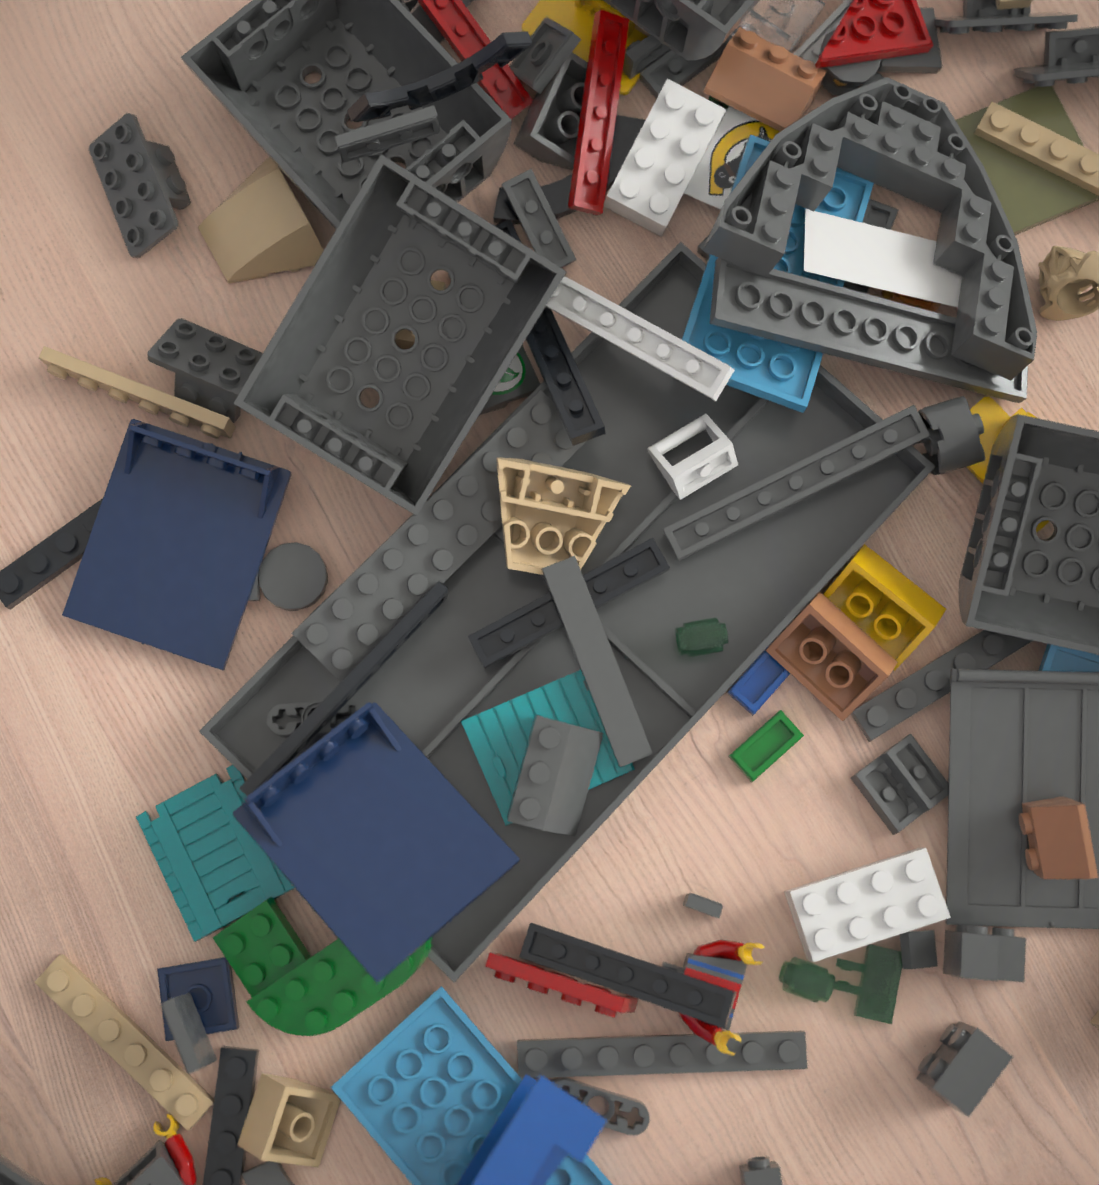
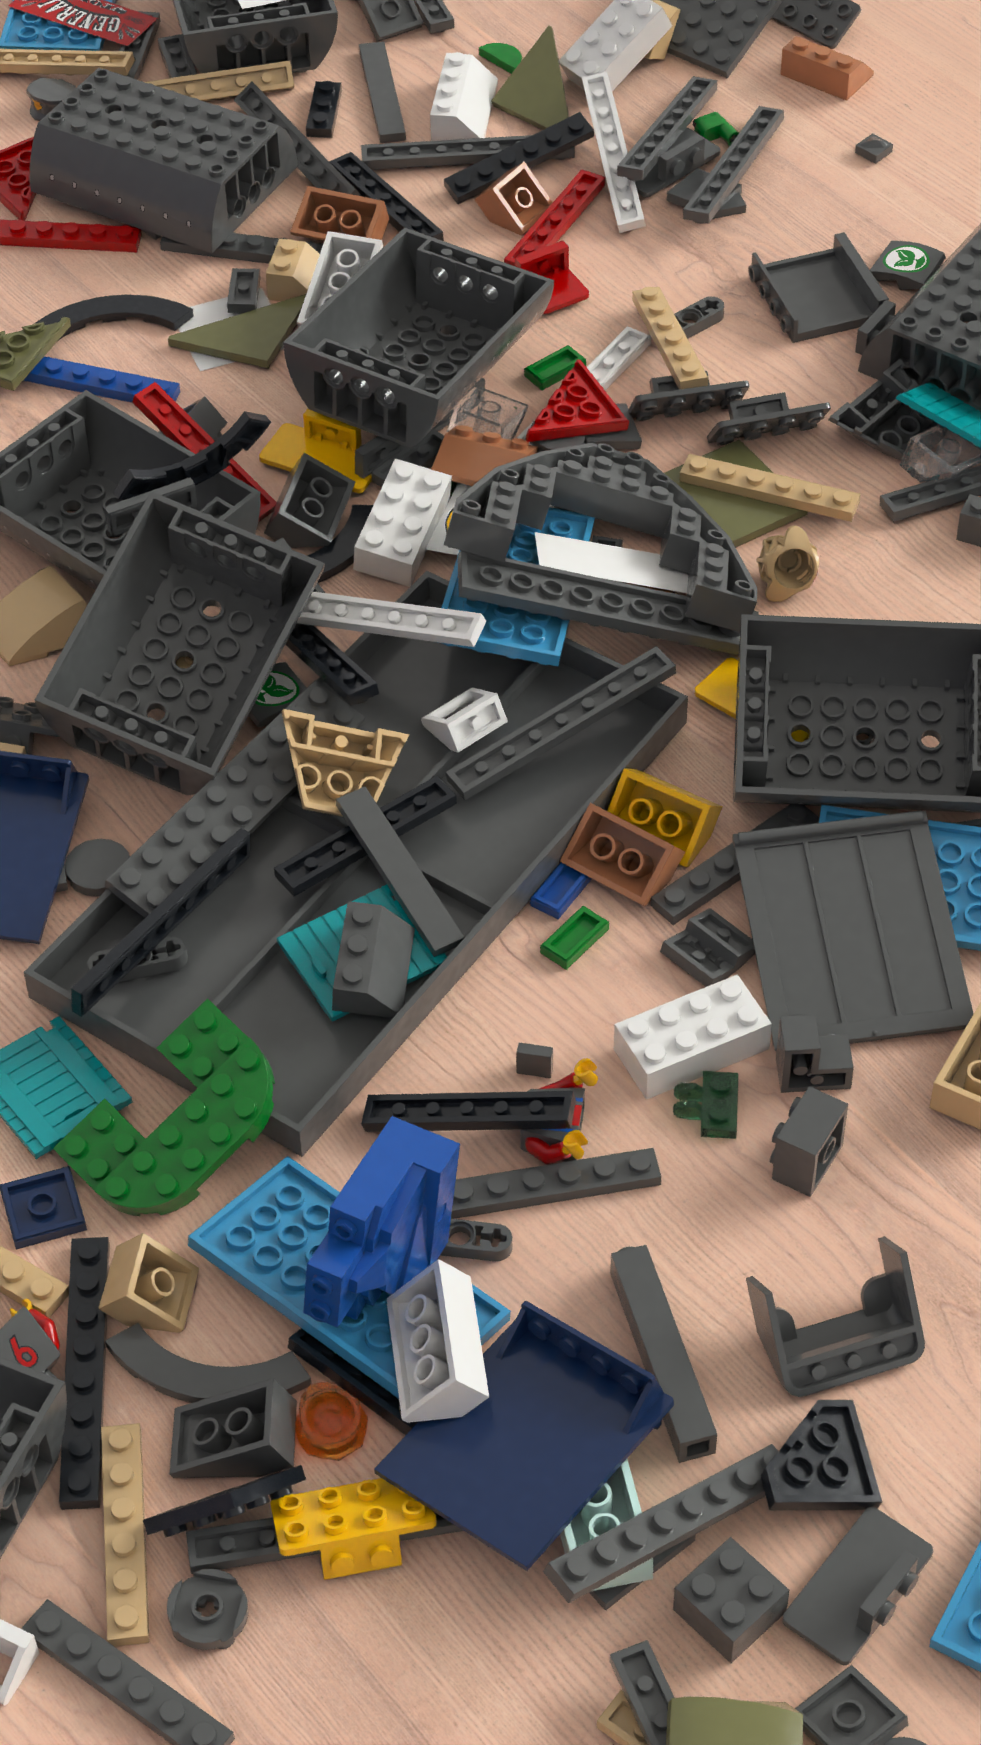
camera: 10 degrees left, 30 degrees down
(188, 1032) = (40, 1206): dark grey tile -> none
(375, 839) = (200, 1000): dark blue door -> none
(545, 56) = (283, 462): dark grey tile -> none
(572, 991) = (362, 1129): red wing -> none
(598, 113) = (338, 496): red plate -> none
(701, 637) = (495, 848): clear green brick -> none
(806, 980) = (646, 1106): clear green brick -> none
(918, 949) = (750, 1068): dark grey tile -> none
(953, 435) = (698, 672): dark grey brick -> none
(1058, 839) = (857, 943): nougat slope -> none

